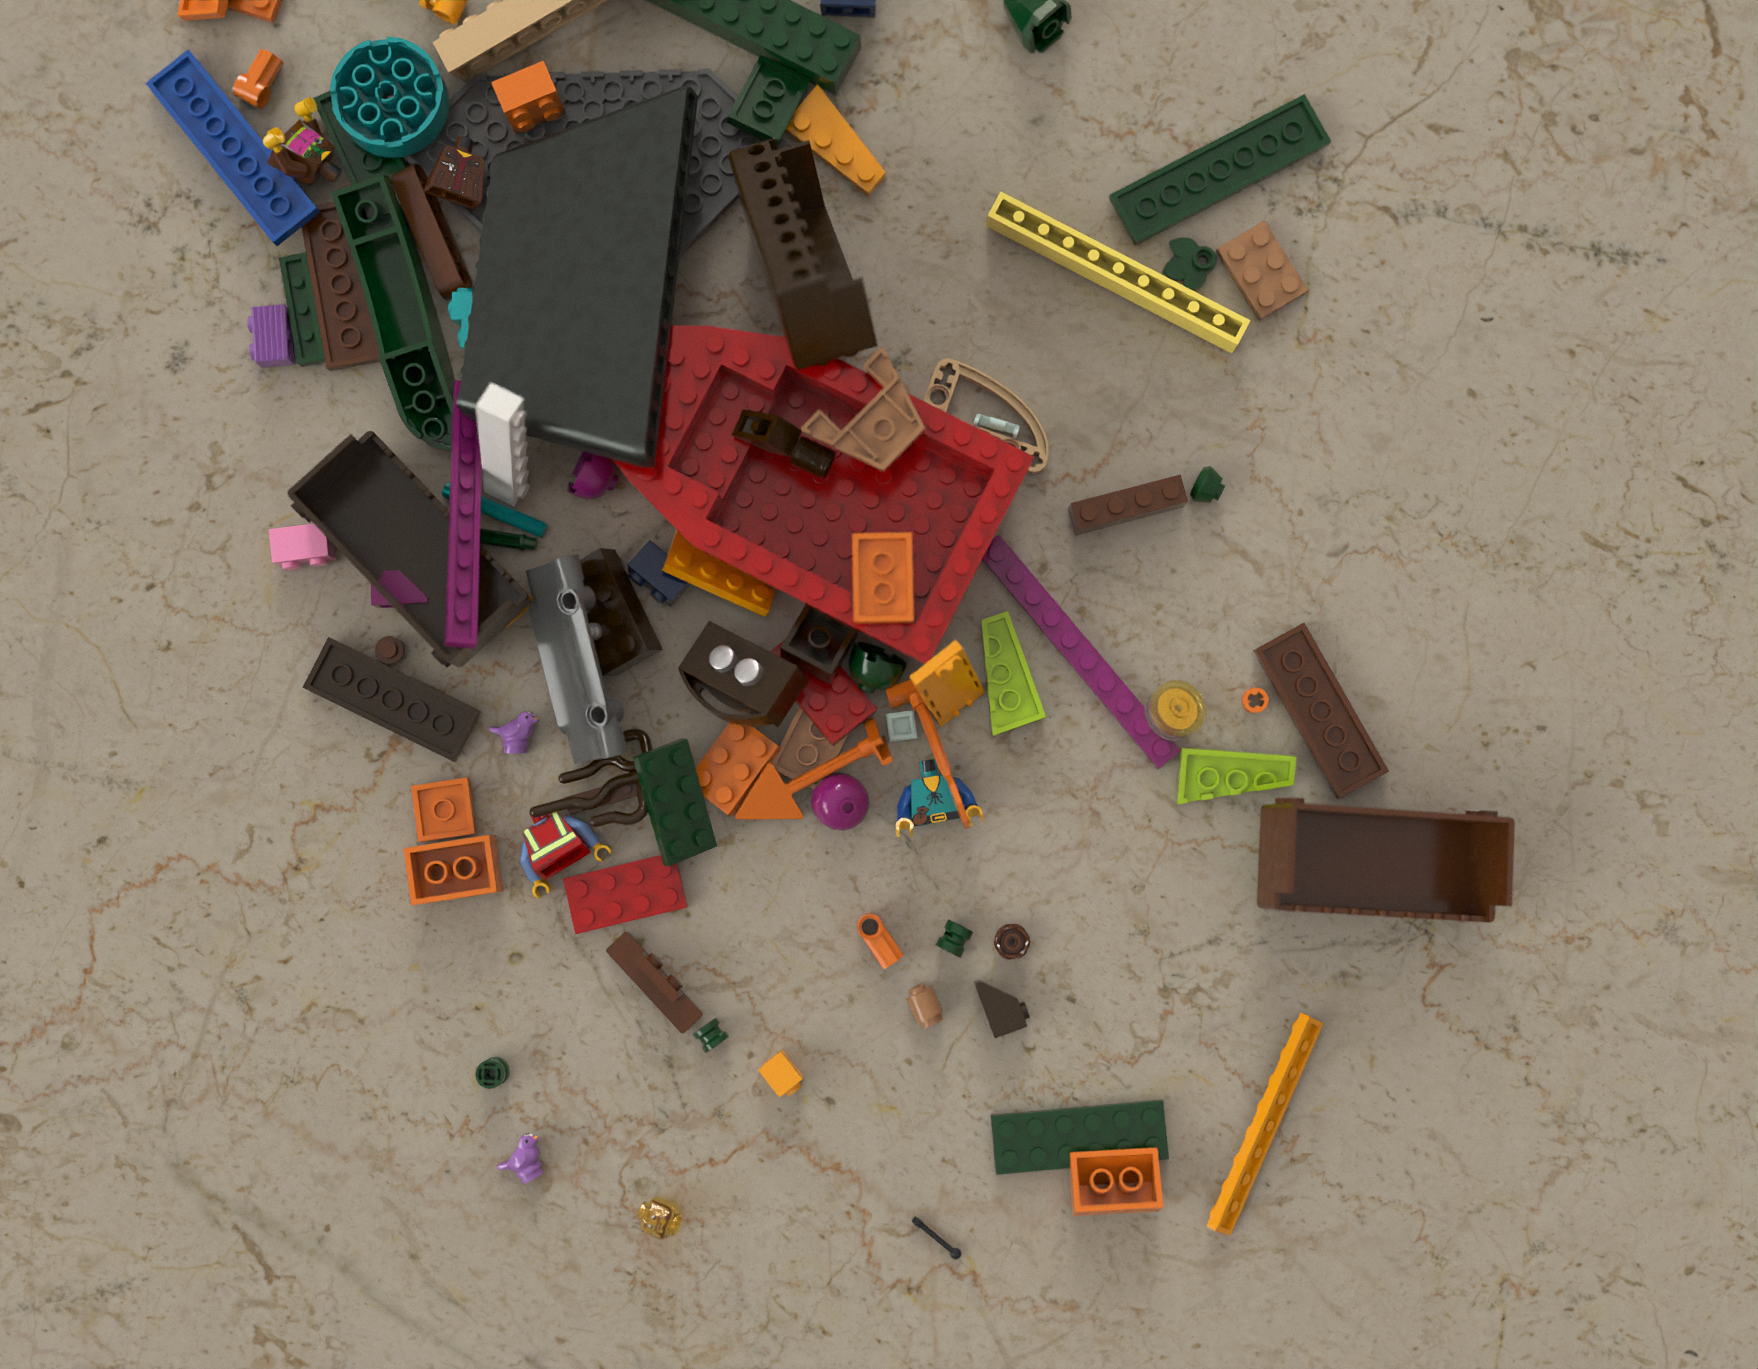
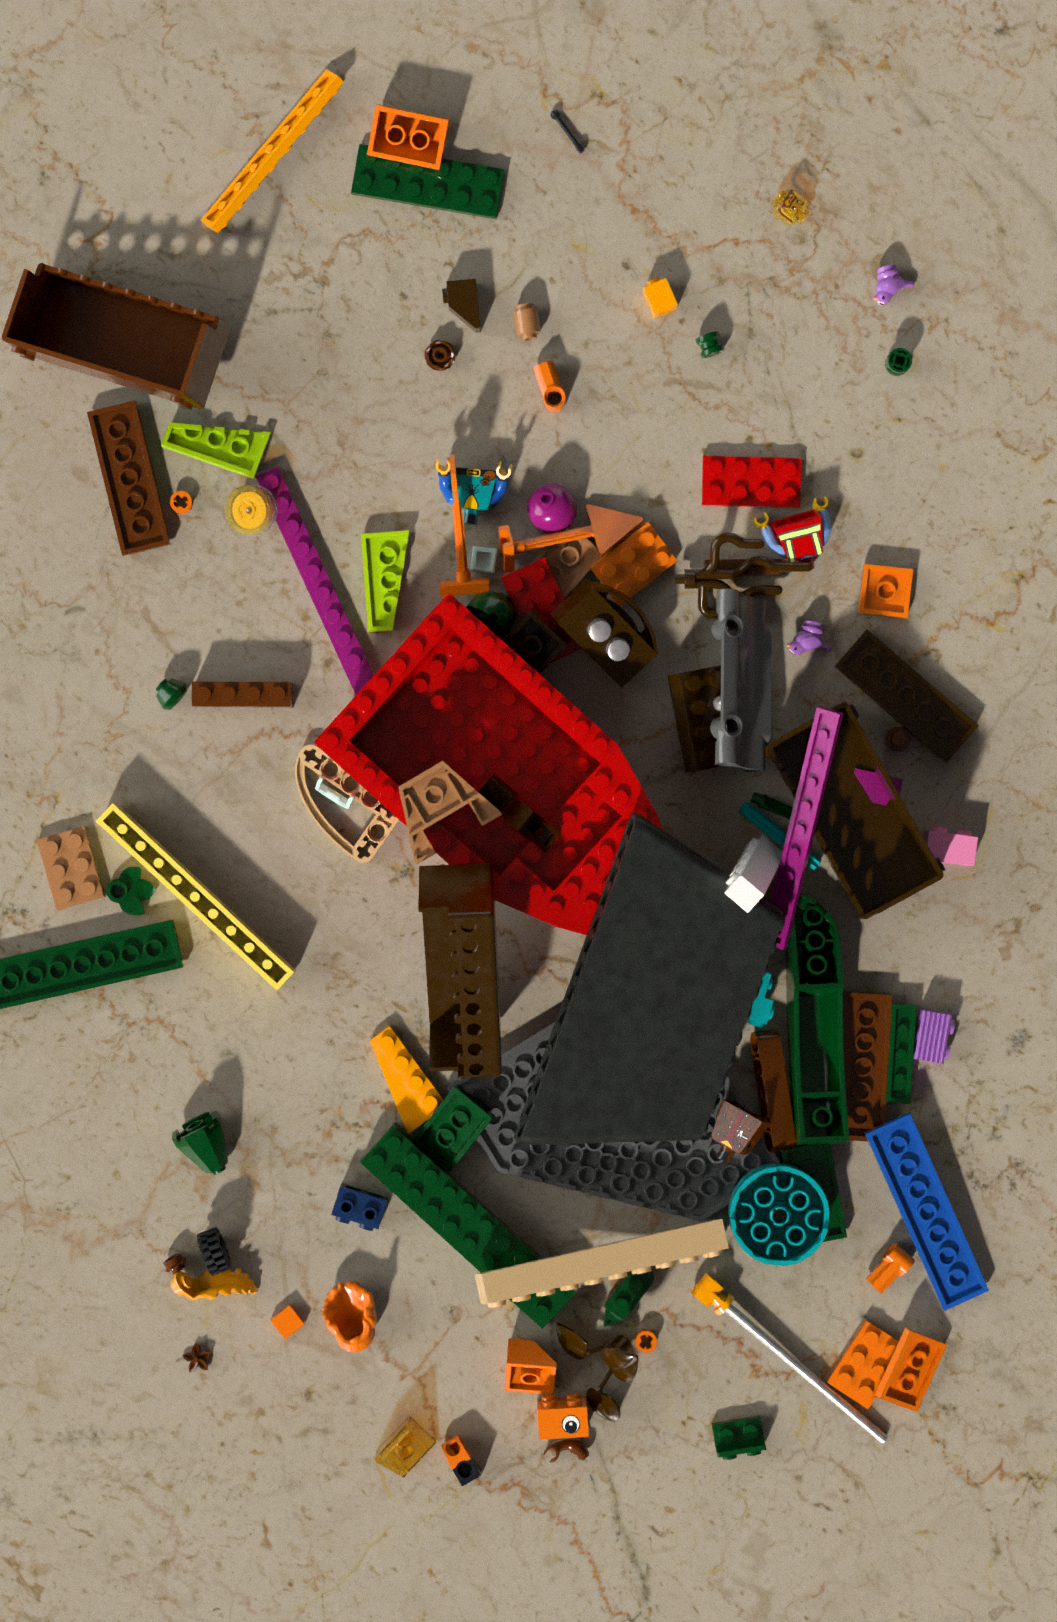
camera: 165 degrees left, 5 degrees up
(302, 149) = (864, 1191): torso -> none
(453, 869) = (888, 537): orange brick -> none
(528, 97) = (659, 1179): orange brick -> none
(593, 476) = (693, 834): magenta cylinder -> none
(647, 570) = (653, 740): dark blue brick -> none
(654, 982) = (745, 400): reddish brown bracket -> none
(675, 801) = (689, 543): dark green plate -> none
(717, 577) = (627, 737): light orange wing -> none
(882, 578) = (467, 671): orange plate -> none
(948, 683) = (436, 577): light orange piece -> none
(954, 938) = (487, 370): dark green wheel -> none

